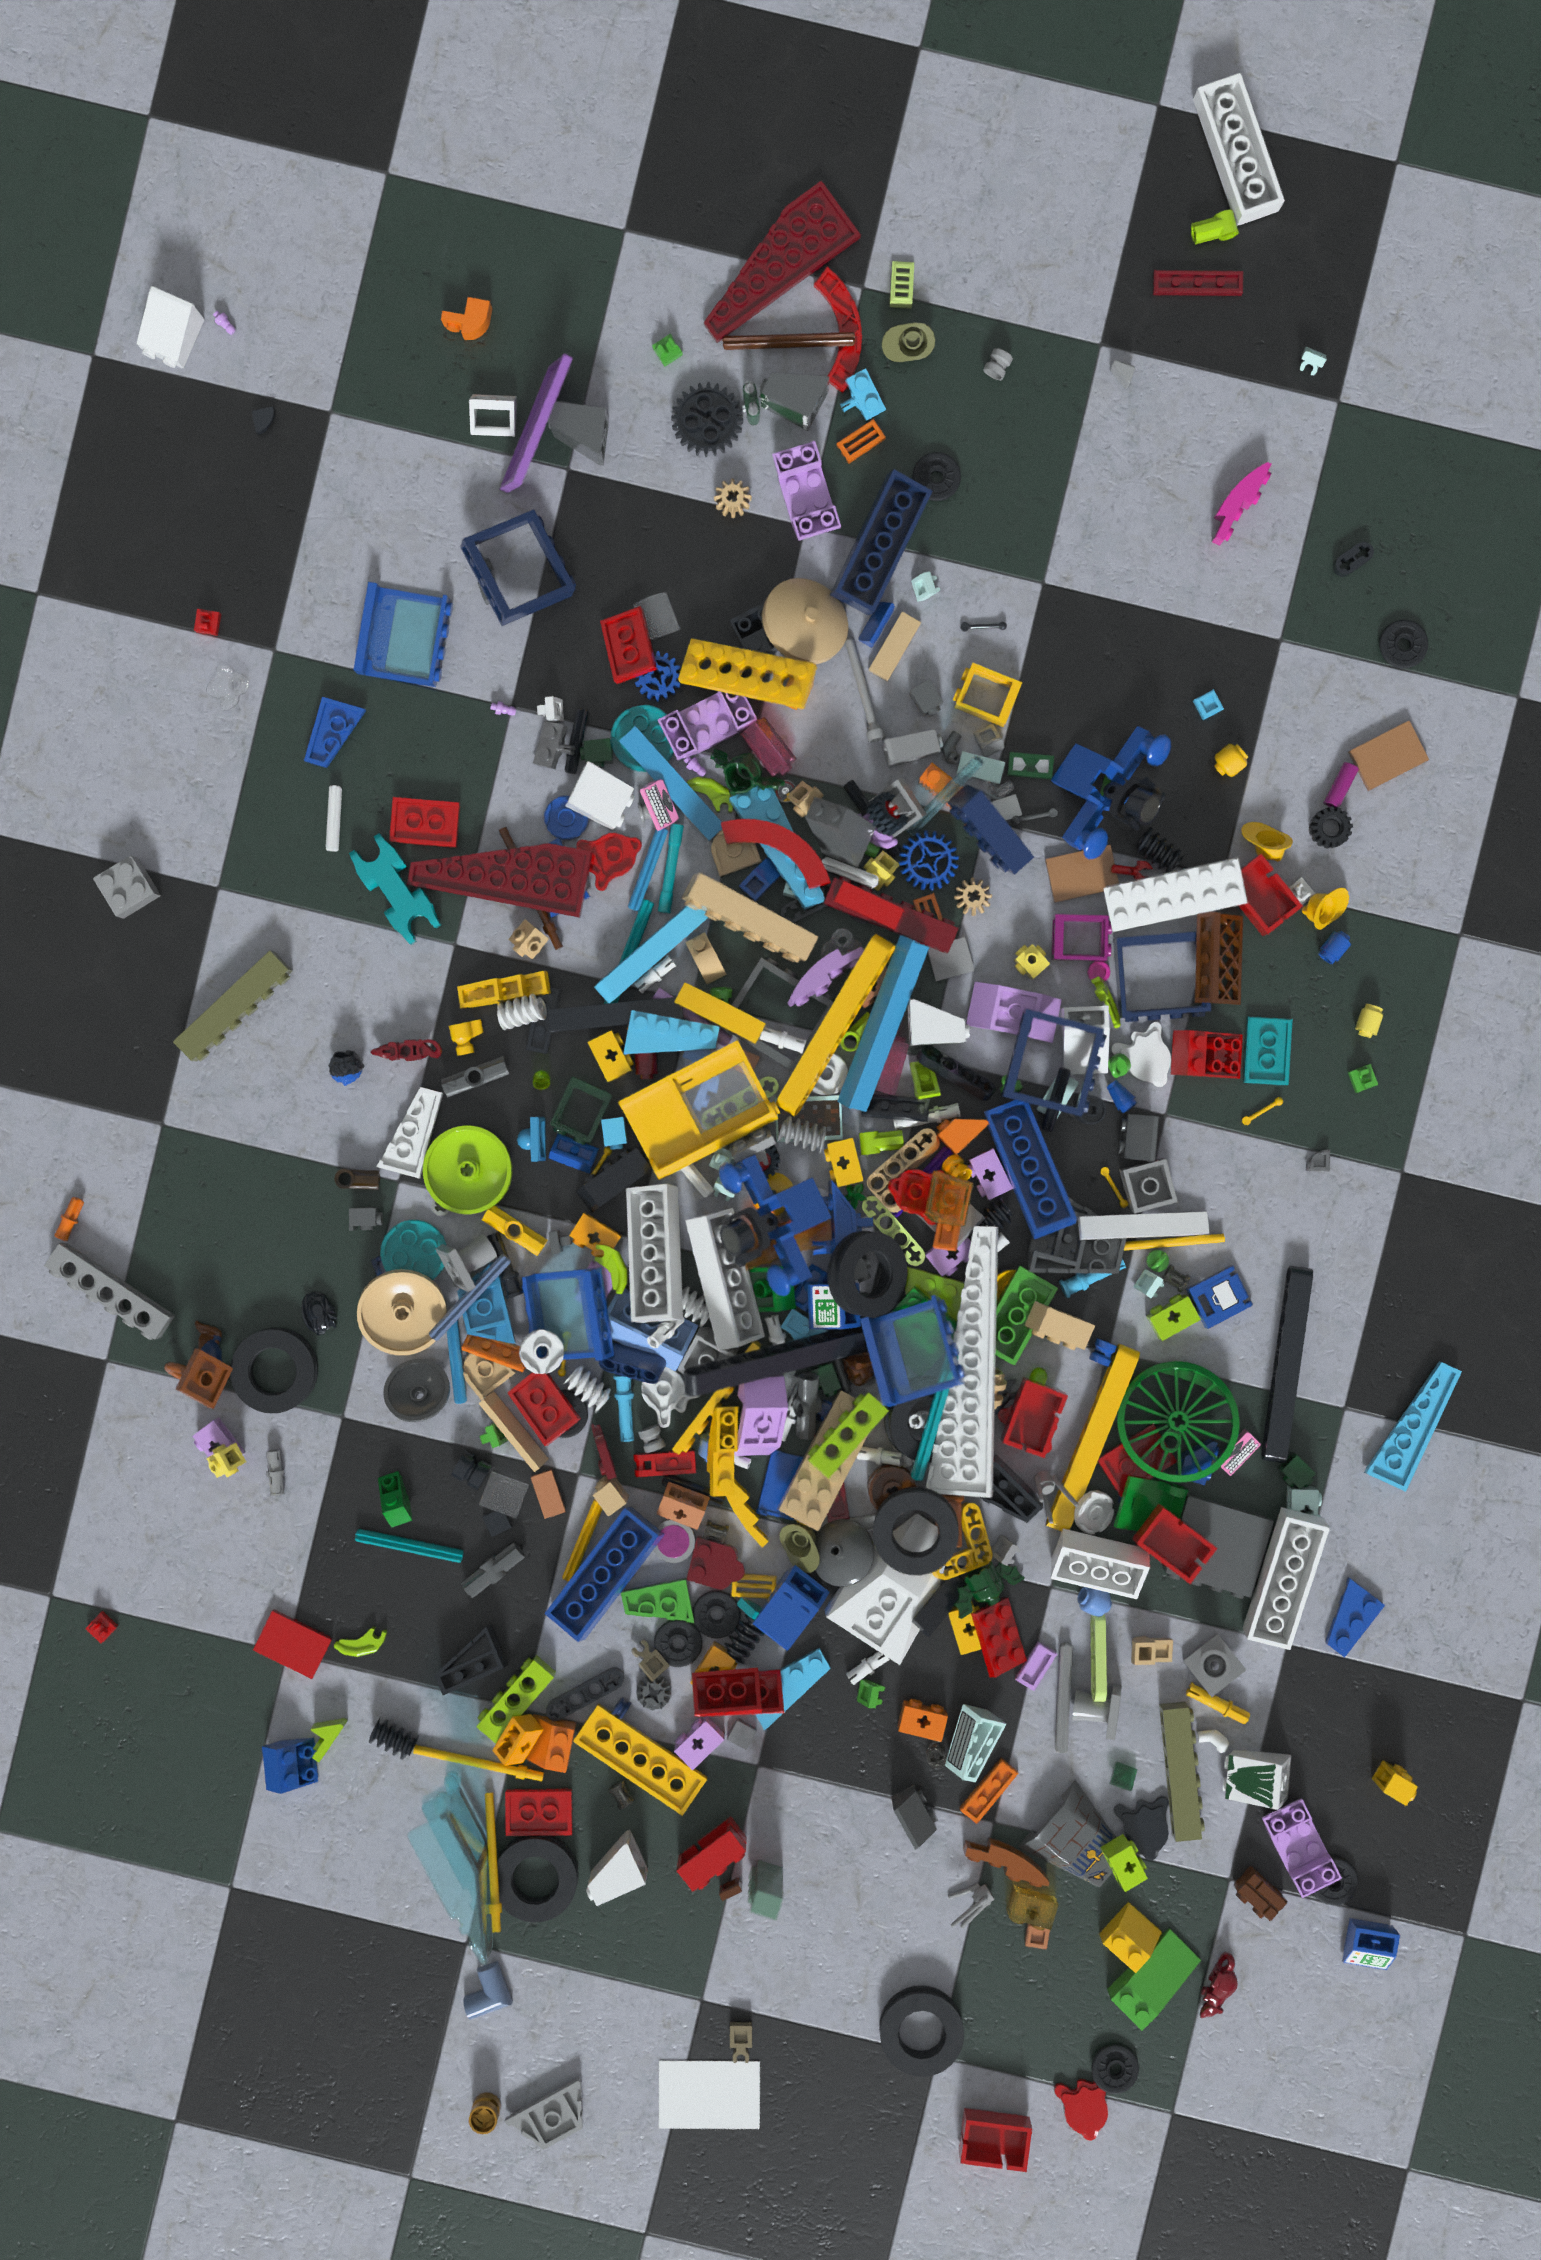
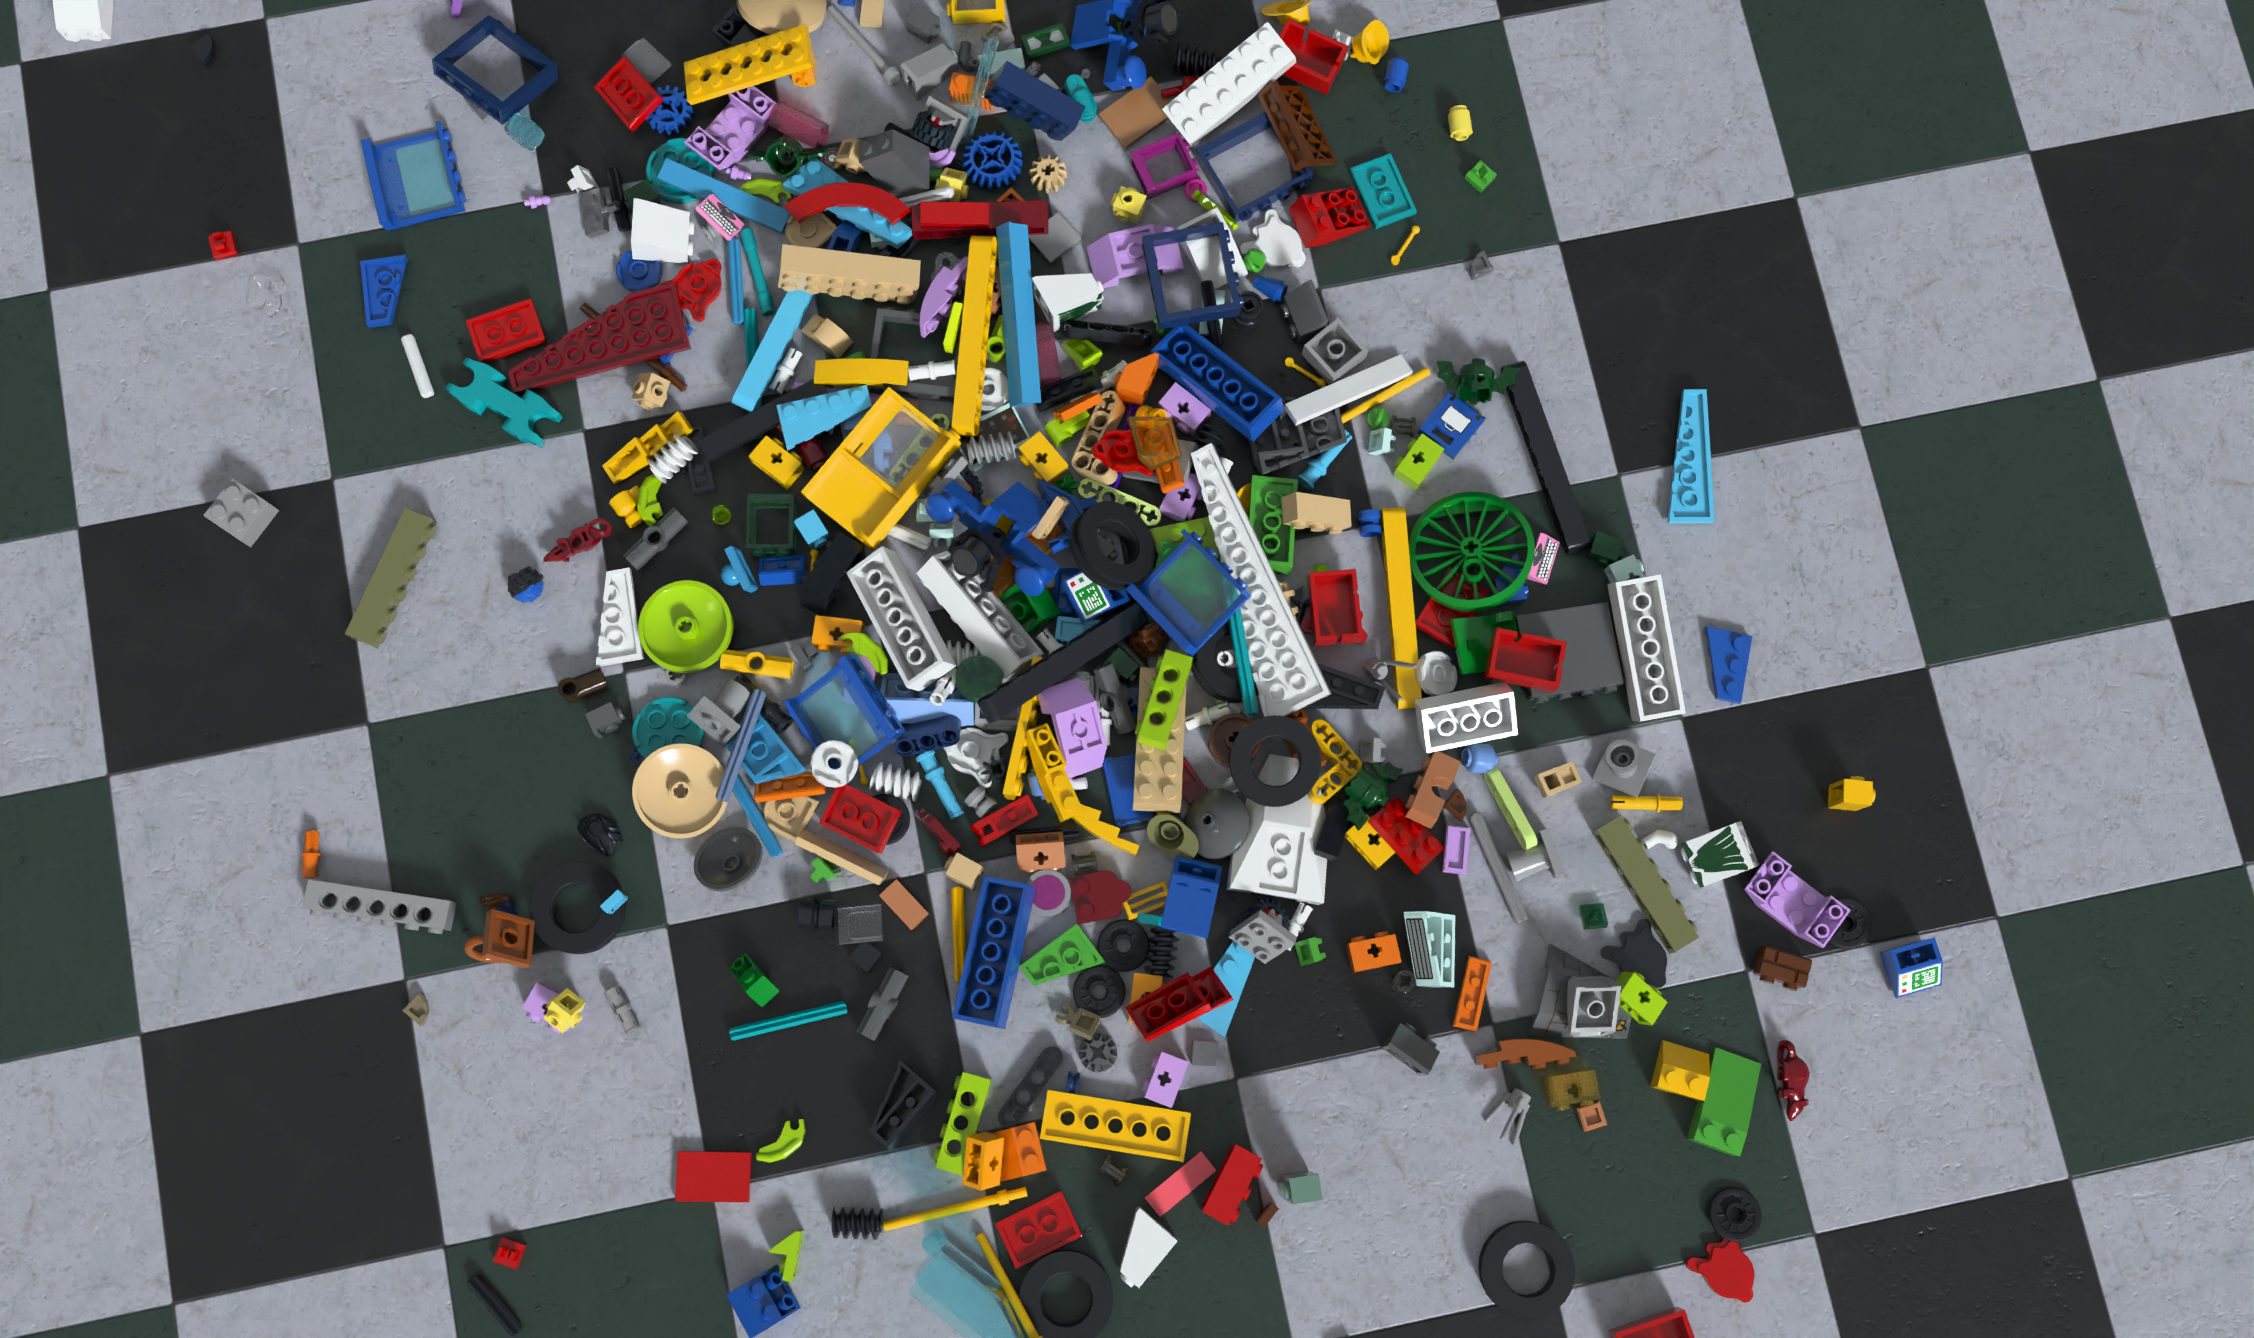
camera: 25 degrees left, 10 degrees down
(72, 1663) = (494, 1305): none -> black axle
(107, 1391) = (418, 1009): none -> dark tan tile
(305, 1385) = (614, 901): none -> medium azure tile
(482, 1040) = (647, 500): none -> lime piece
(519, 640) = (524, 131): none -> clear light blue gear
(671, 1829) = (1180, 1184): none -> coral tile
(673, 1424) = (988, 771): none -> black gear
(697, 1339) = (978, 677): none -> clear green tile
(819, 1010) = (953, 327): none -> neon yellow tile
(825, 1225) = (1051, 517): none -> tan tile
(839, 1662) = (1264, 931): none -> light grey plate
(896, 1132) = (1077, 406): none -> orange tile
(1026, 1621) = (1424, 805): none -> nougat arch
(1037, 835) = (1078, 90): none -> teal arm
(1055, 1628) = (1456, 805): none -> reddish brown tile
(1083, 1853) = (1592, 1005): none -> light grey slope
(1261, 1269) = (1476, 380): none -> dark green helmet

